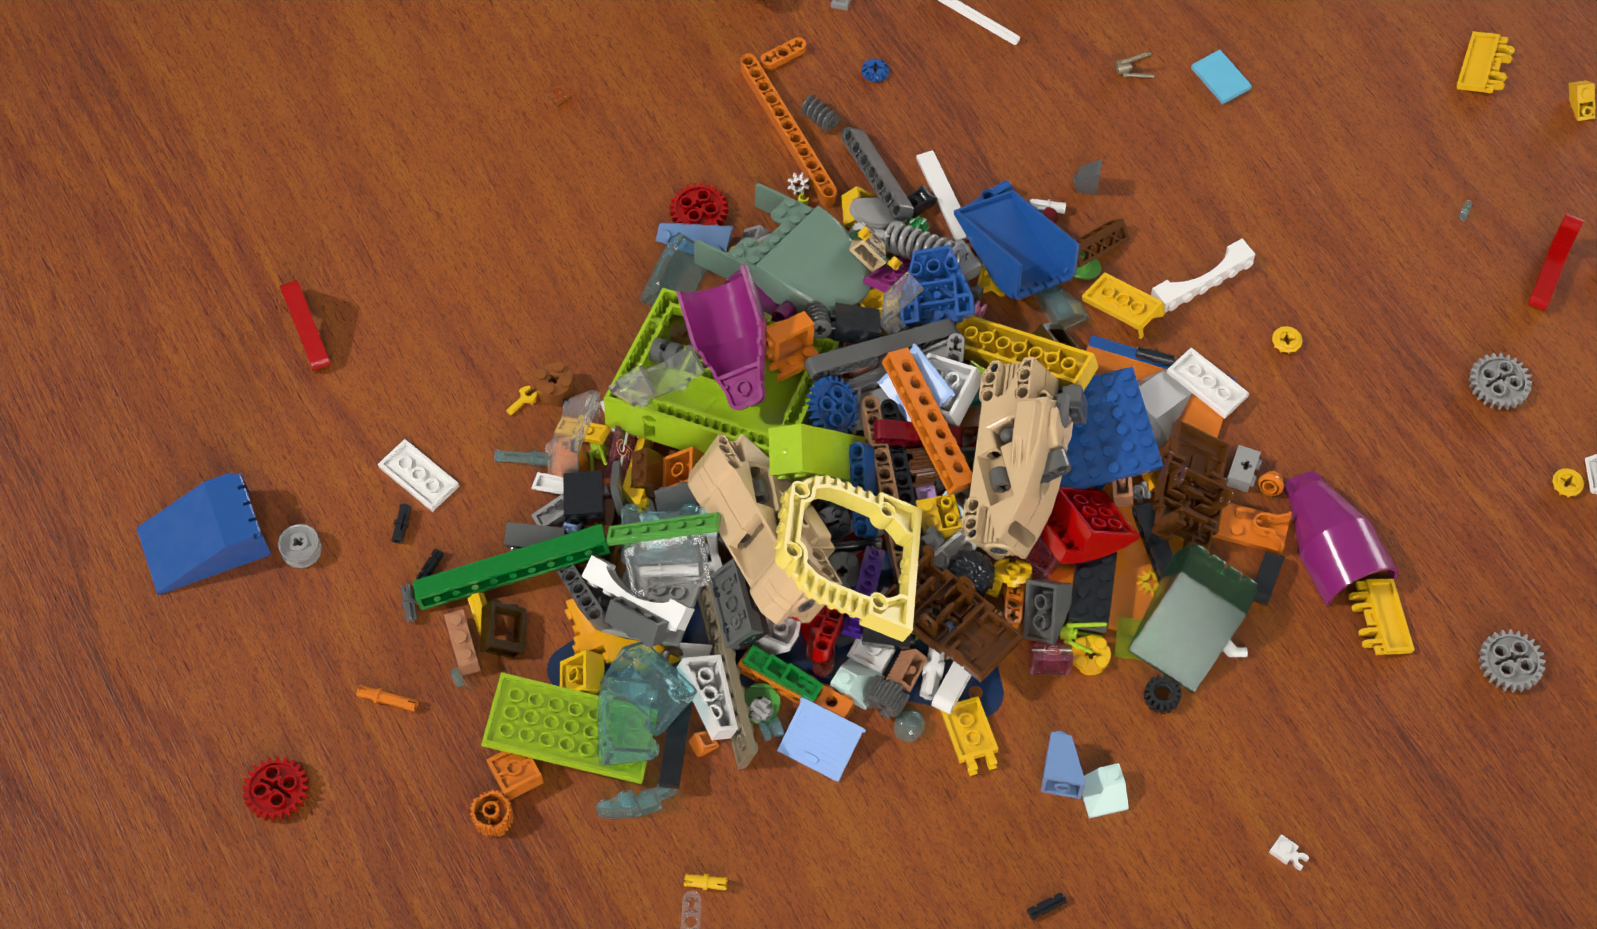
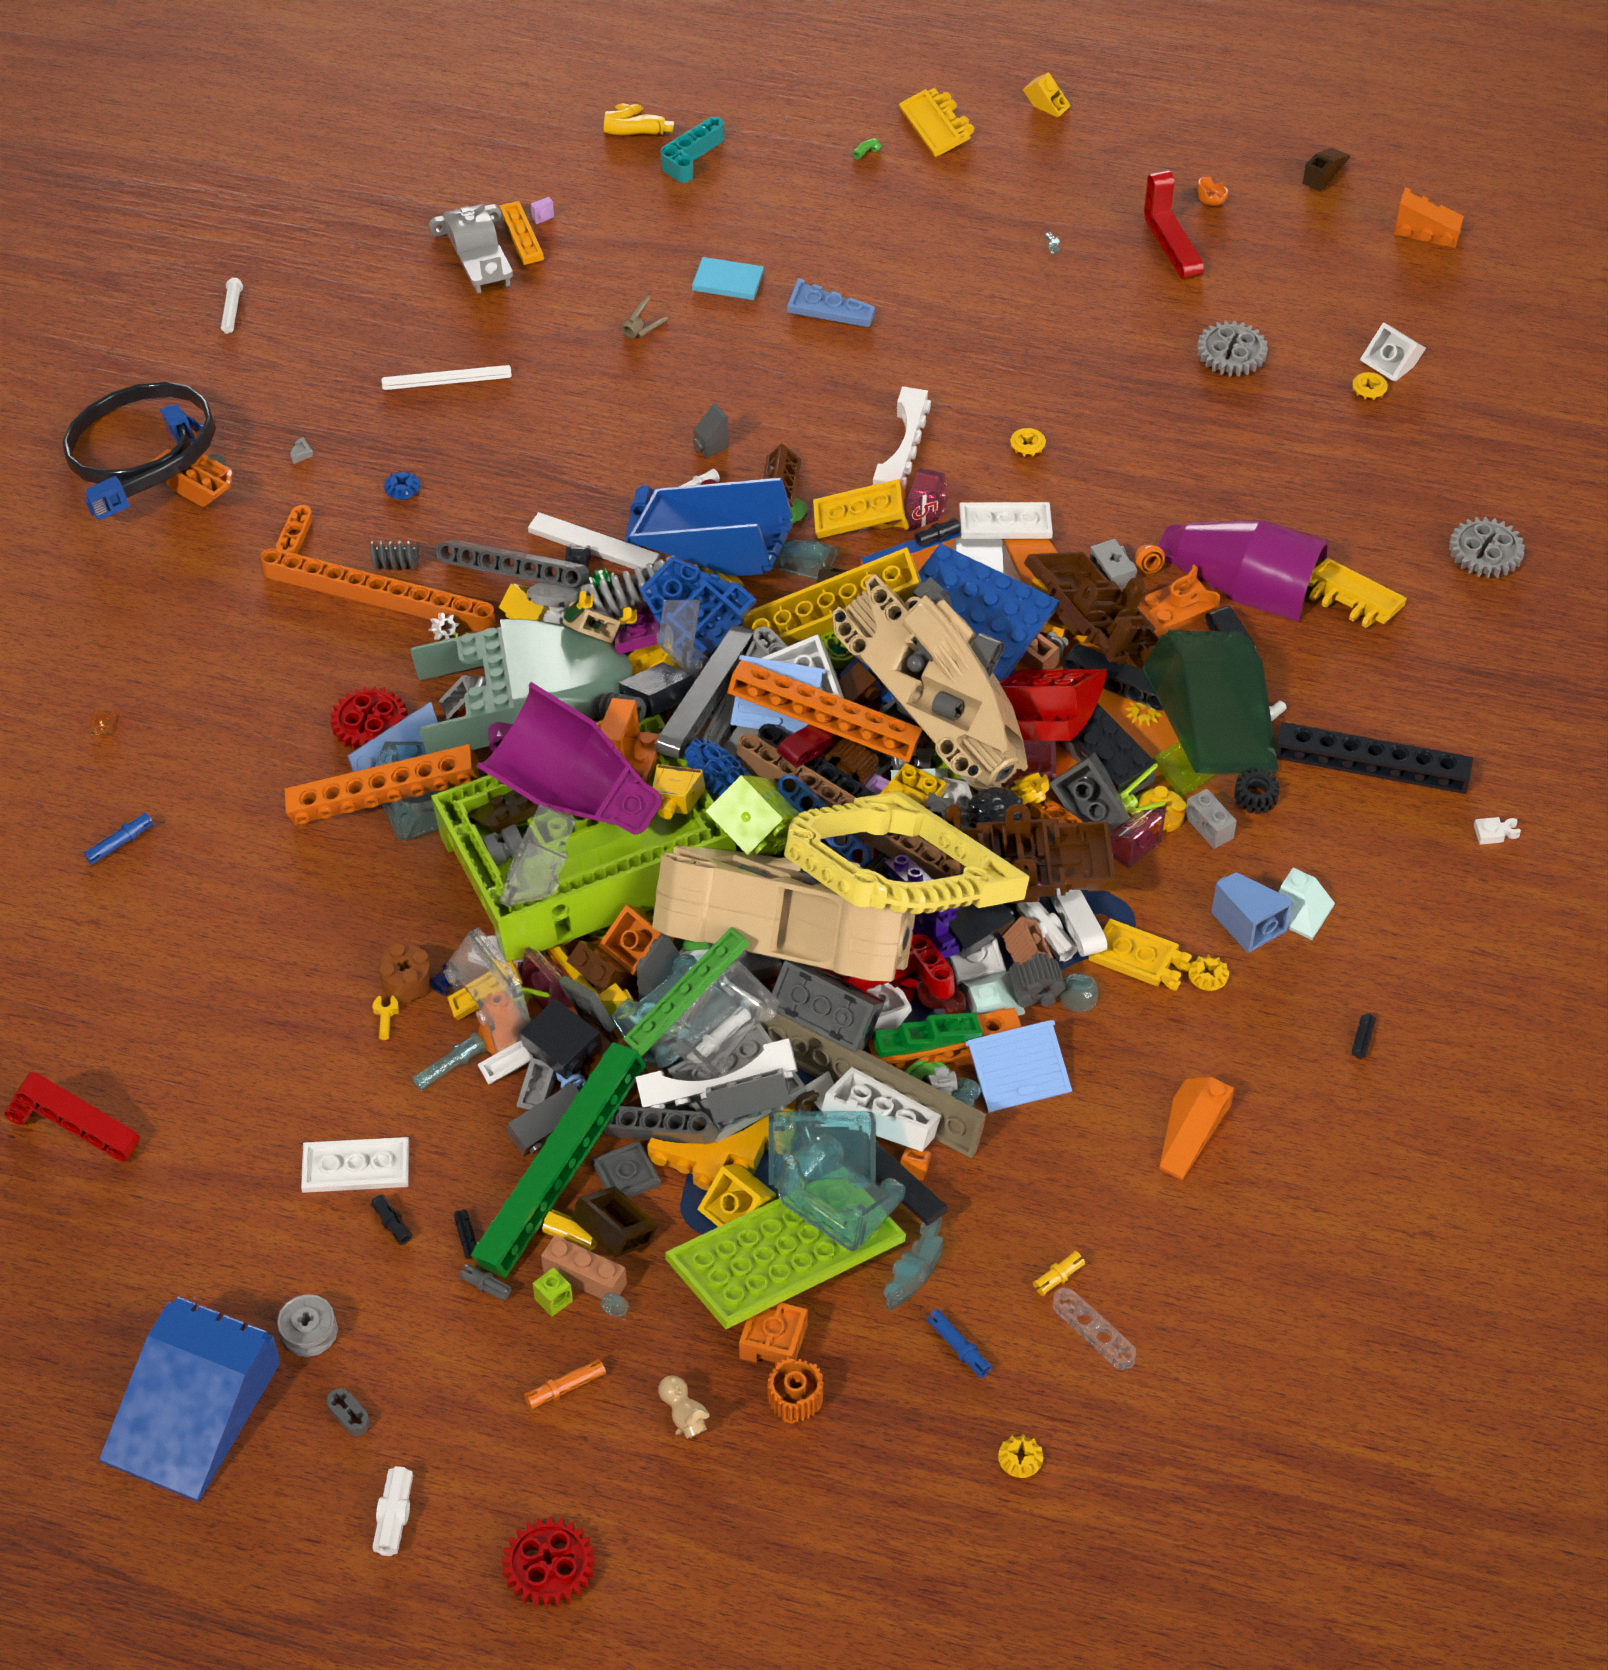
camera: 45 degrees left, 10 degrees down
(234, 688) = (392, 1511): none -> white piece
(267, 612) = (352, 1408): none -> dark grey beam
(423, 773) = (686, 1412): none -> tan animal
(433, 640) = (552, 1292): none -> lime brick
(497, 174) = (117, 839): none -> blue pin
(547, 606) = (627, 1170): none -> dark grey tile
(606, 878) = (966, 1351): none -> blue pin
(652, 256) = (381, 784): none -> orange brick
(783, 399) = (678, 788): none -> yellow torso
(886, 863) = (1192, 1121): none -> orange wedge
(1004, 790) = (1205, 980): none -> yellow gear
(1110, 687) = (1210, 818): none -> light grey brick
(1169, 327) = (926, 498): none -> clear pink slope
(1260, 140) = (820, 304): none -> medium blue wing
(1300, 797) = (1374, 757): none -> black brick
(1410, 47) = (863, 147): none -> bright green arm

